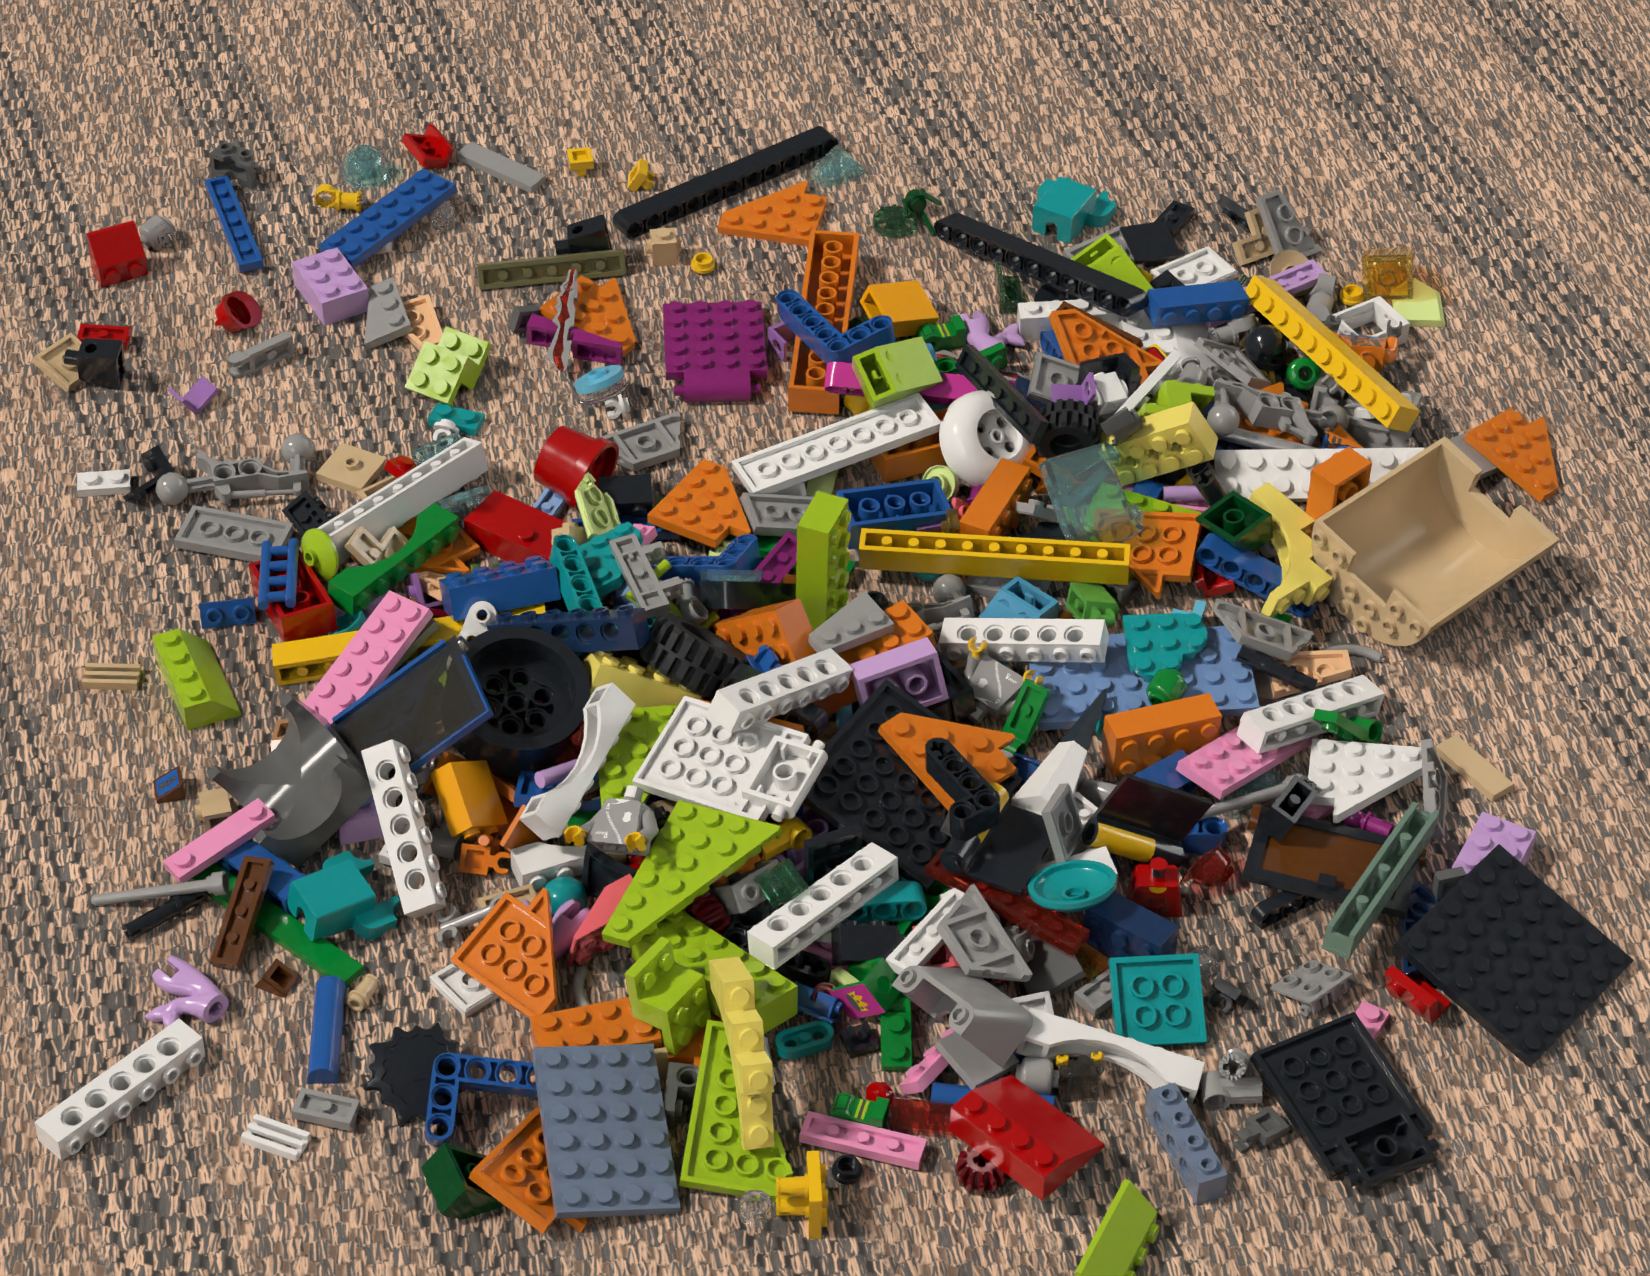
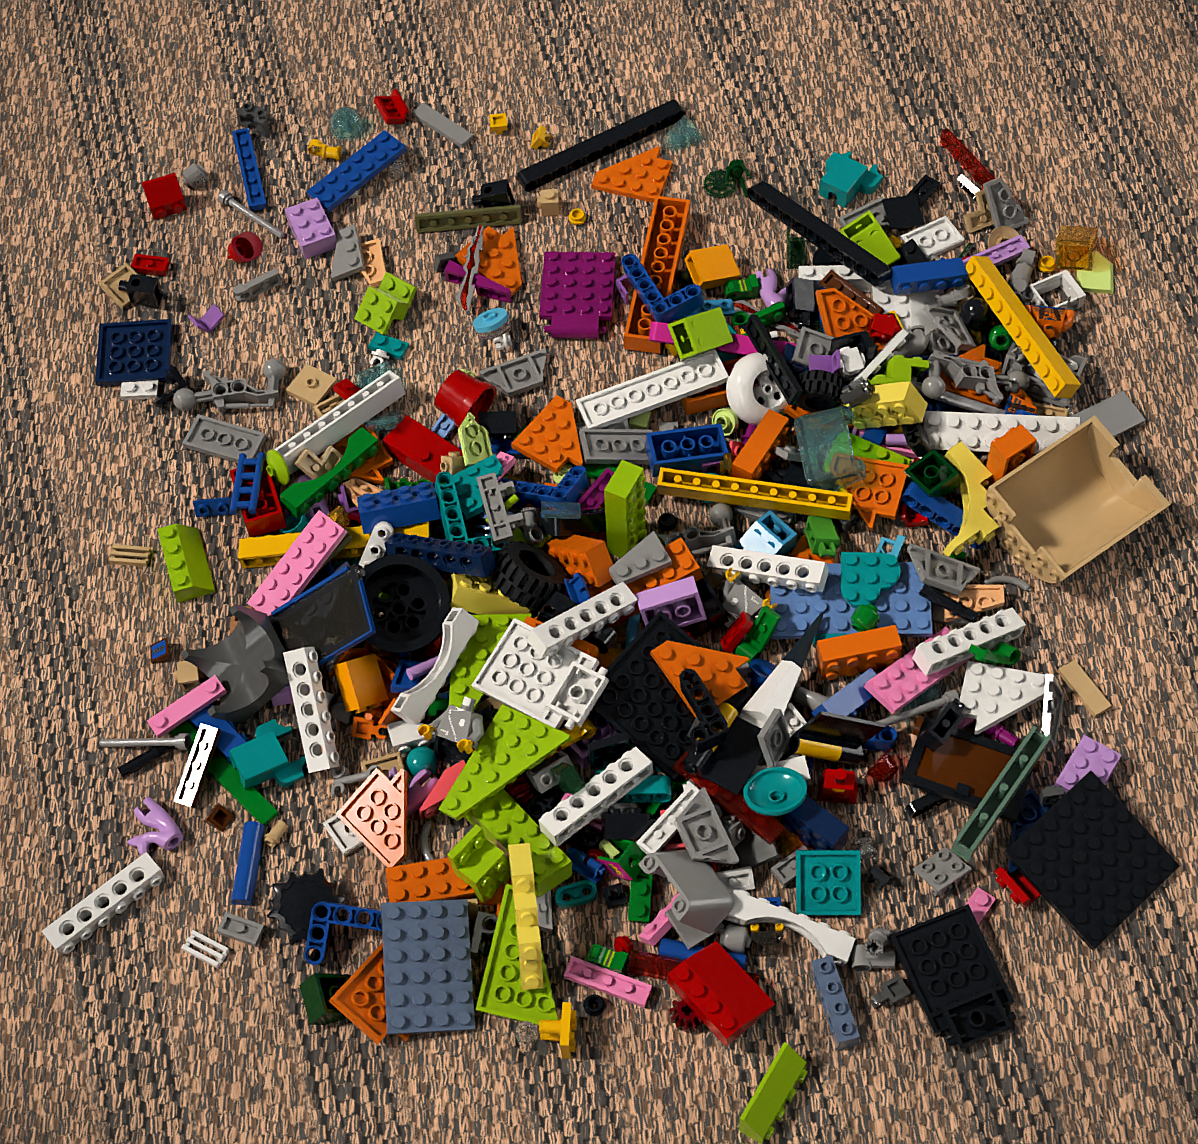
camera: 10 degrees right, 15 degrees up
(91, 437) = (133, 351): none -> dark blue plate
(204, 258) = (227, 199): none -> light grey piece
(307, 513) = (277, 427): black bracket -> none
(995, 712) = (736, 632): none -> red plate
(1023, 340) = (800, 301): none -> black hinge
(1145, 353) = (882, 328): none -> red brick
(1222, 178) = (965, 157): none -> clear red plate
(1519, 451) = (1153, 411): orange wing -> none

